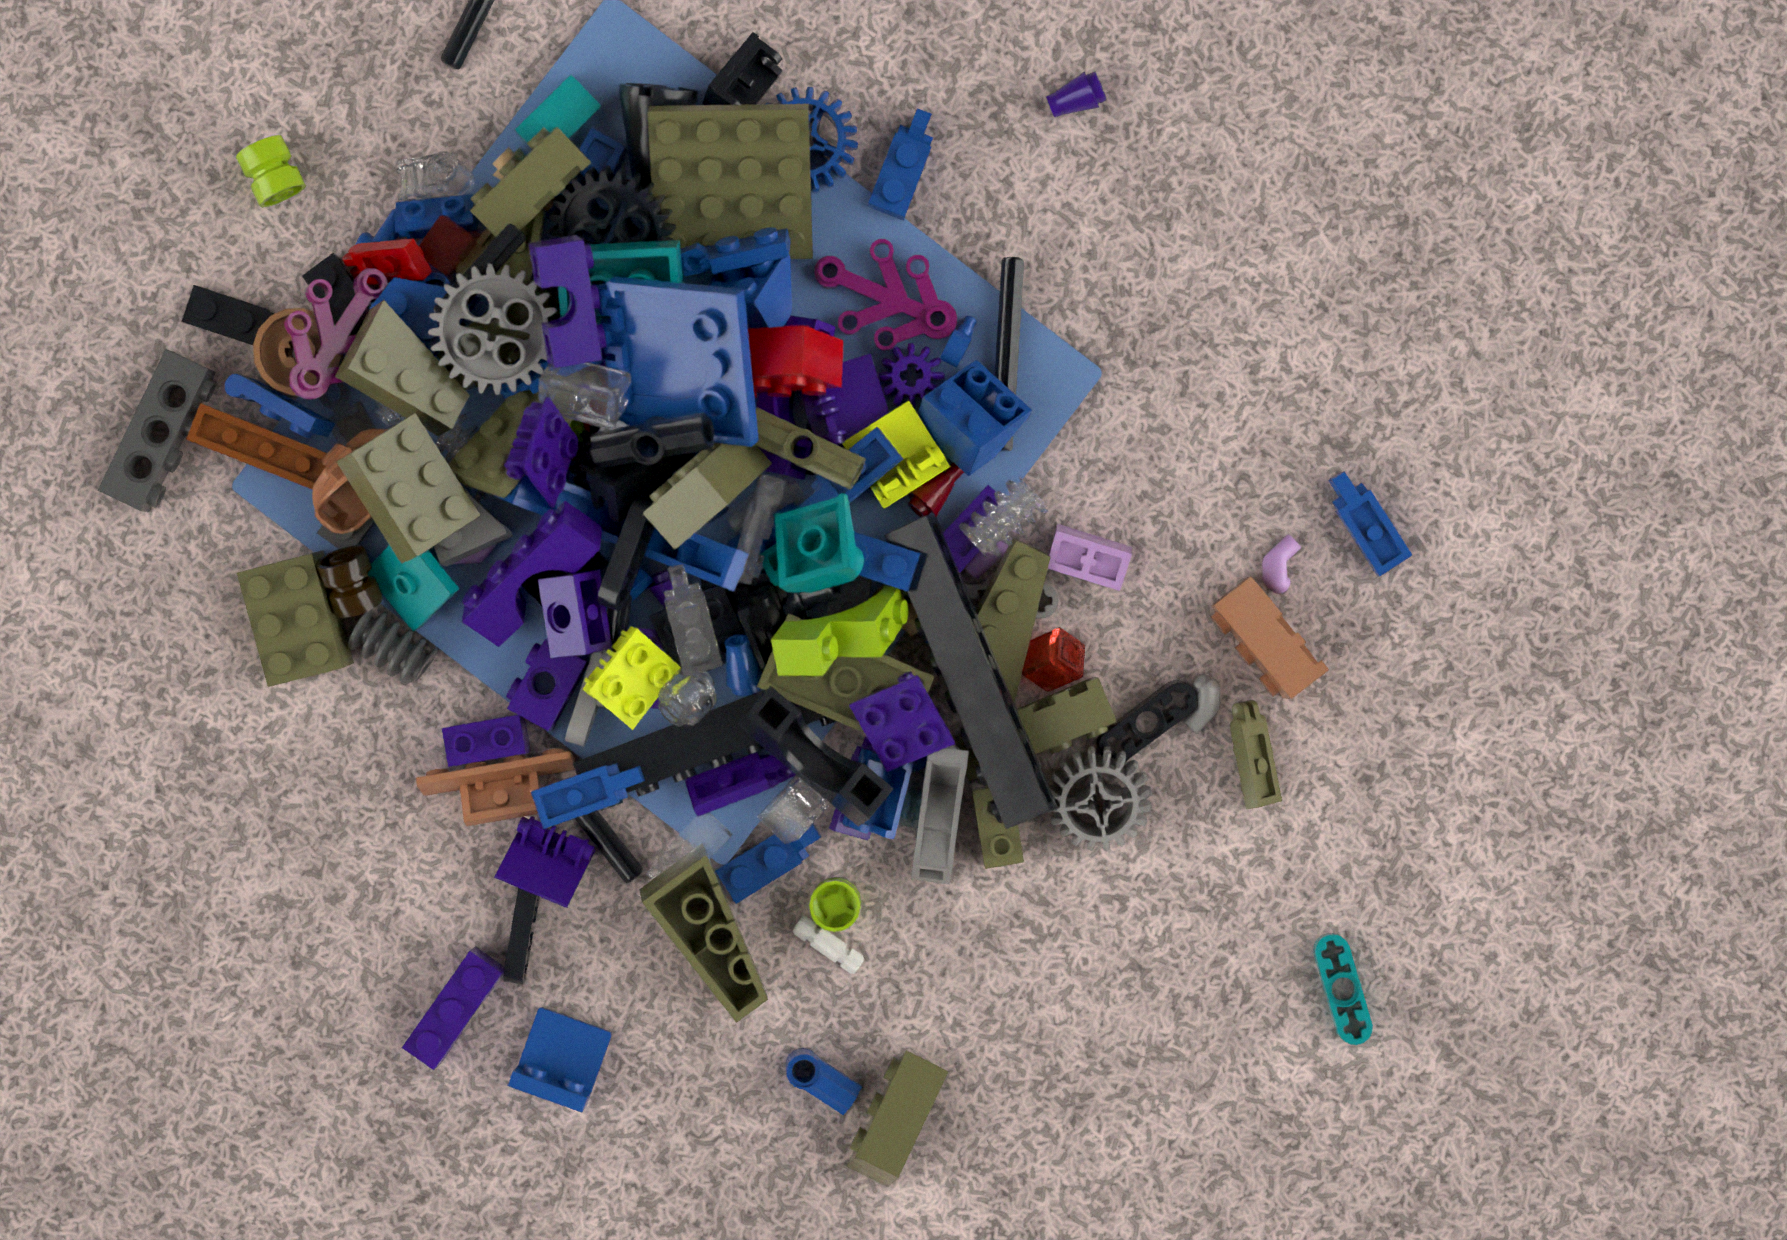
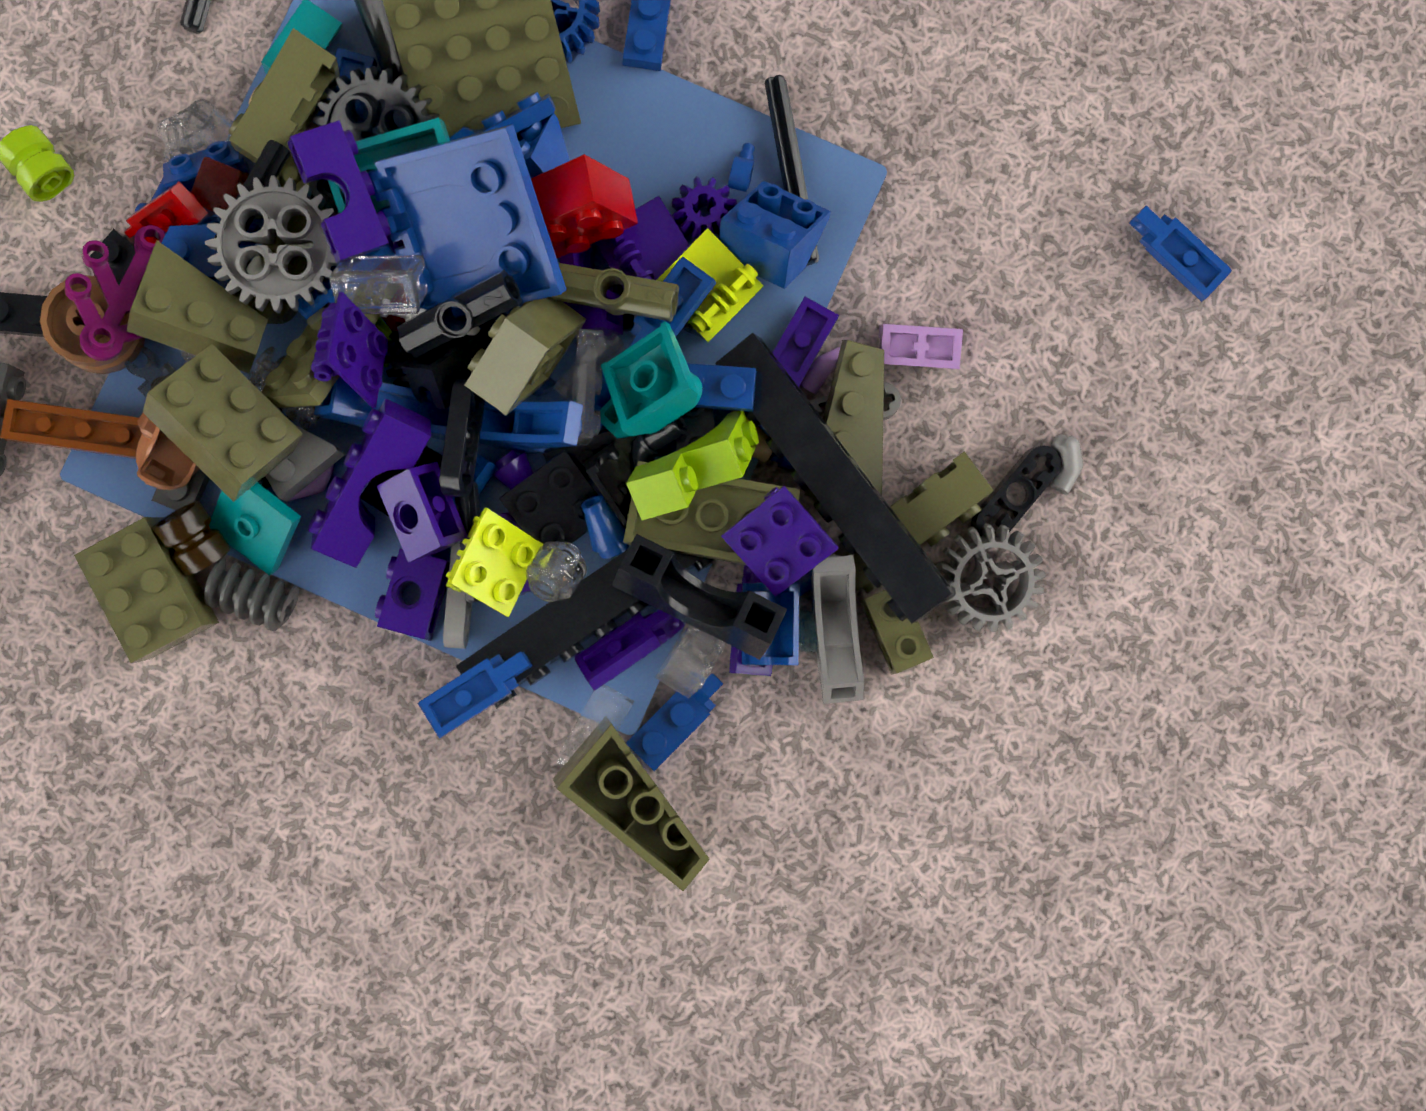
camera: 15 degrees left, 5 degrees down
(278, 405) = (85, 384): blue plate -> none
(454, 1008) = (391, 946): dark purple arch -> none
(486, 740) = (365, 666): dark purple brick -> none
(497, 789) = (388, 712): nougat bracket -> none
(520, 937) = (444, 856): black beam -> none
(545, 862) = (452, 773): dark purple hinge -> none
(561, 1059) = (513, 974): blue bracket -> none
(610, 845) = (513, 741): black axle -> none
(691, 624) = (542, 493): clear hinge -> none
(824, 1082) = (786, 930): blue piece -> none
(828, 945) = (756, 790): white axle -> none
(835, 904) = (754, 747): lime wheel -> none
(891, 299) = (666, 144): magenta plant -> none
(896, 1118) = (869, 951): olive wedge -> none
(932, 495) = (754, 314): dark red cone -> none
(1003, 517) = (826, 320): clear piece -> none
(1054, 660) = (911, 454): clear red panel -> none
(1254, 756) = (1130, 500): olive hinge -> none
(1266, 640) = (1116, 384): nougat wedge -> none
(1275, 564) = (1101, 313): lavender arm -> none
(1341, 1019) = (1284, 741): teal beam -> none

